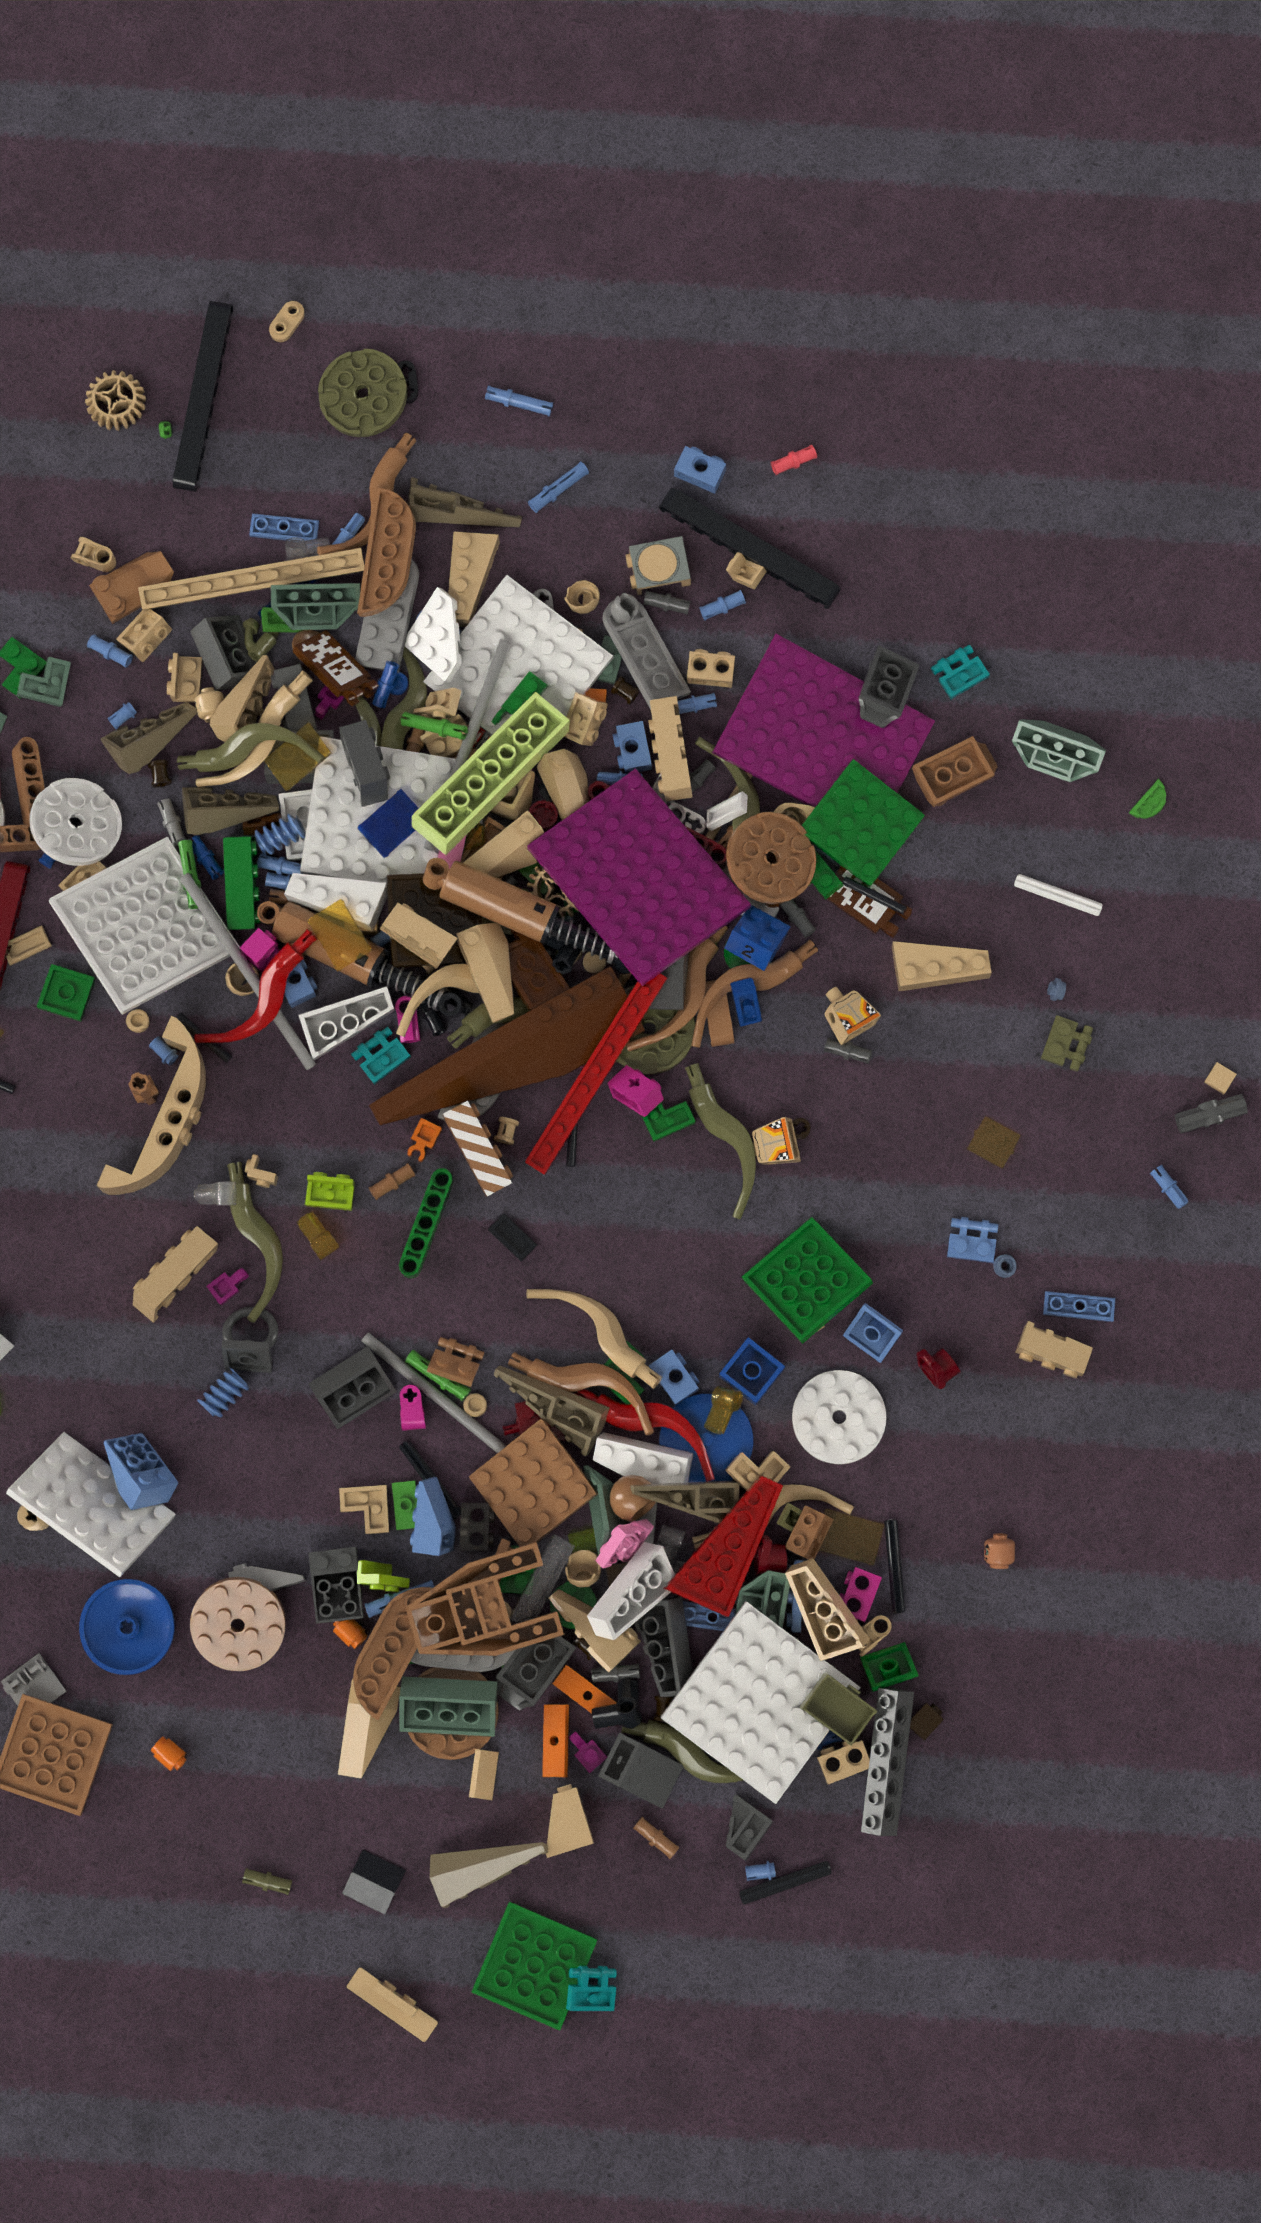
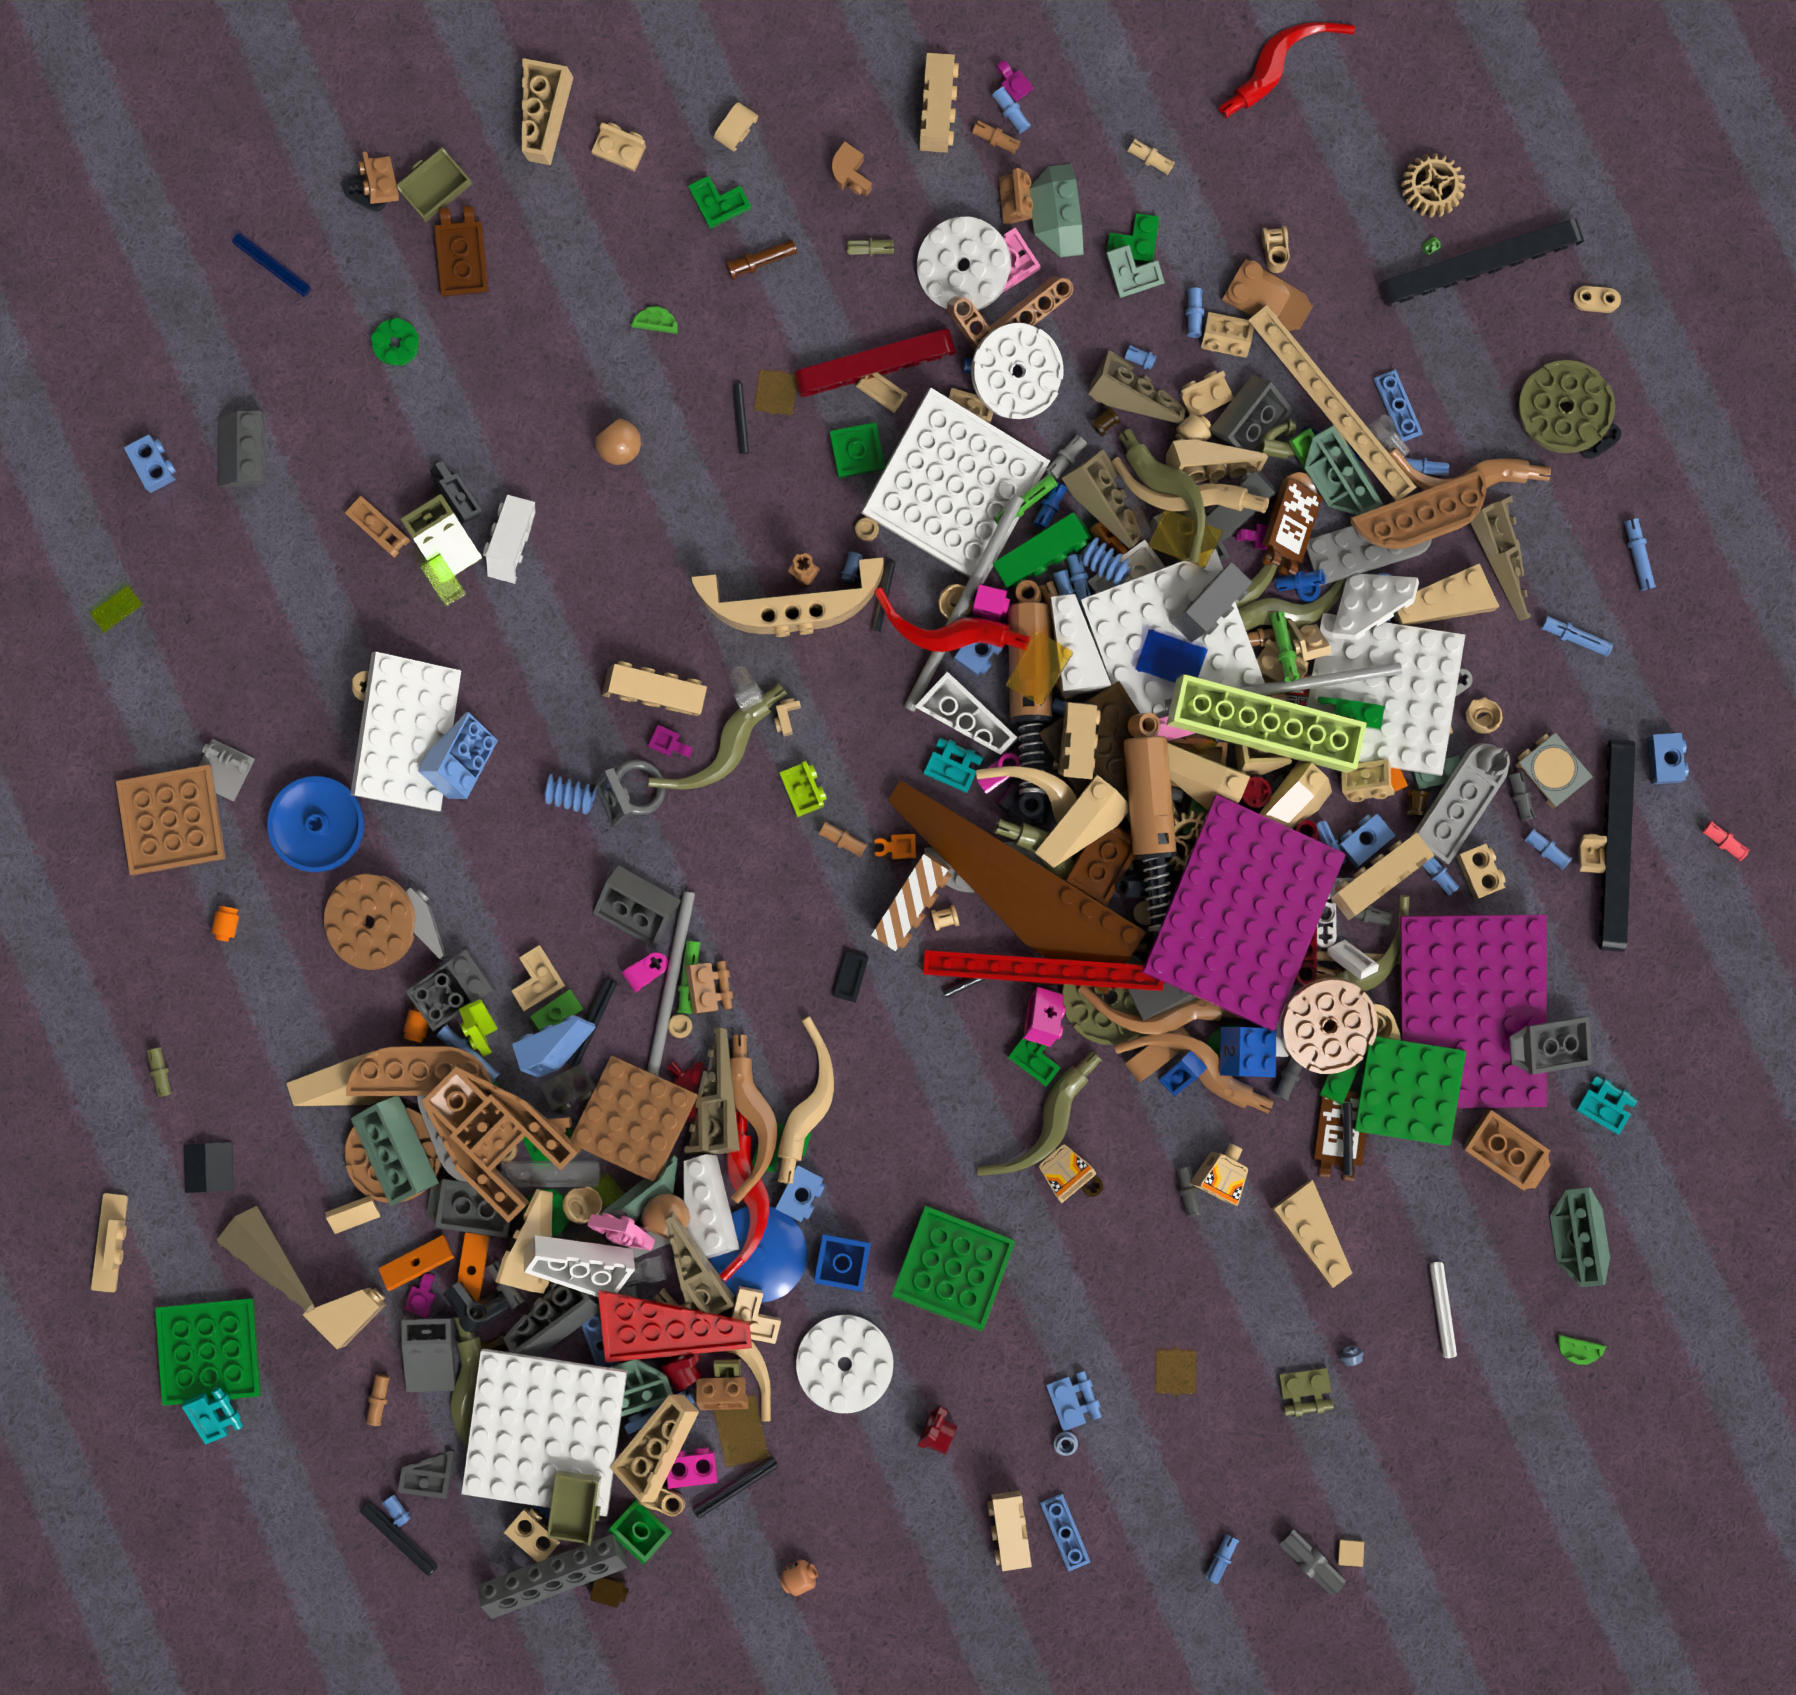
camera: 55 degrees right, 5 degrees up
(320, 1239) = (757, 799): clear yellow piece -> none
(432, 1213) = (809, 887): green beam -> none
(724, 1403) = (799, 1254): clear yellow piece -> none
(873, 1333) = (937, 1354): medium blue slope -> none

